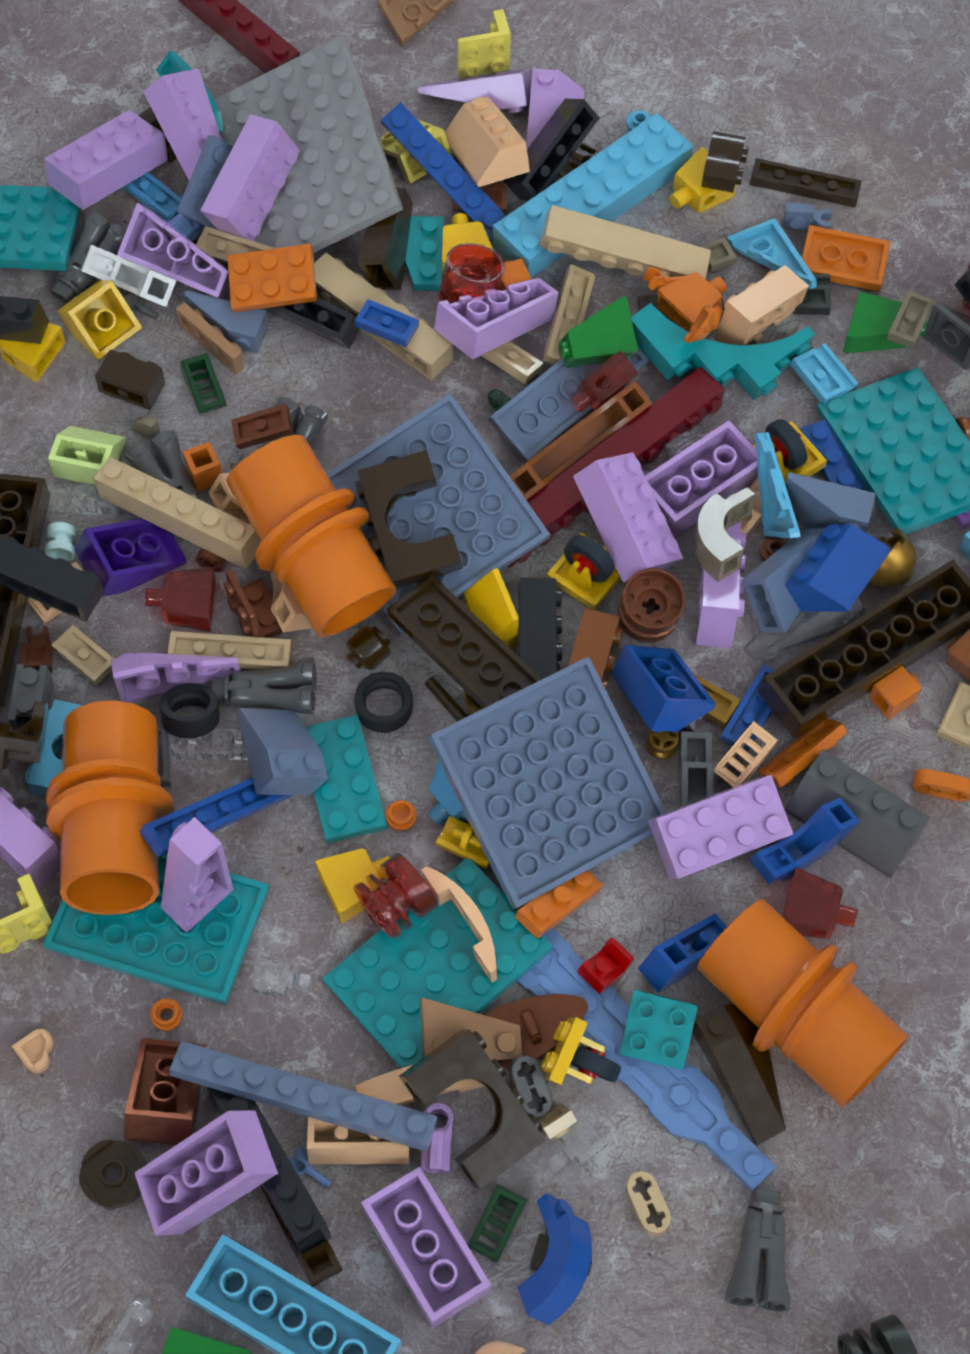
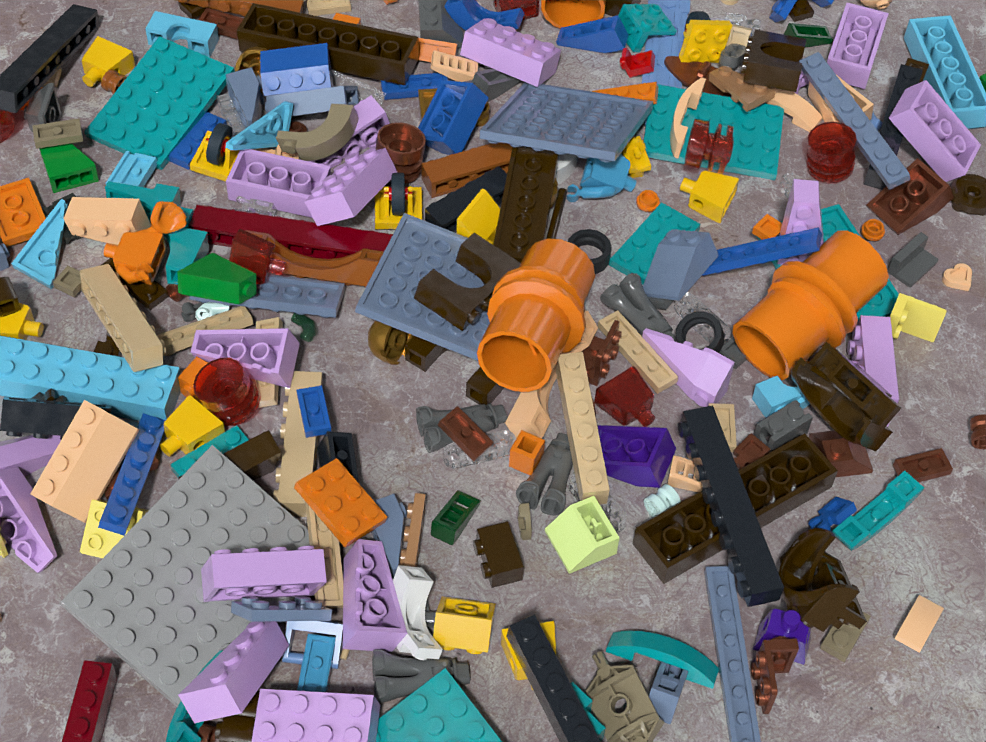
camera: 130 degrees left, 10 degrees down
(91, 1017) = (912, 261): none -> dark grey panel
(249, 882) = (767, 227): none -> orange plate
(294, 1029) = (831, 152): none -> clear red wheel

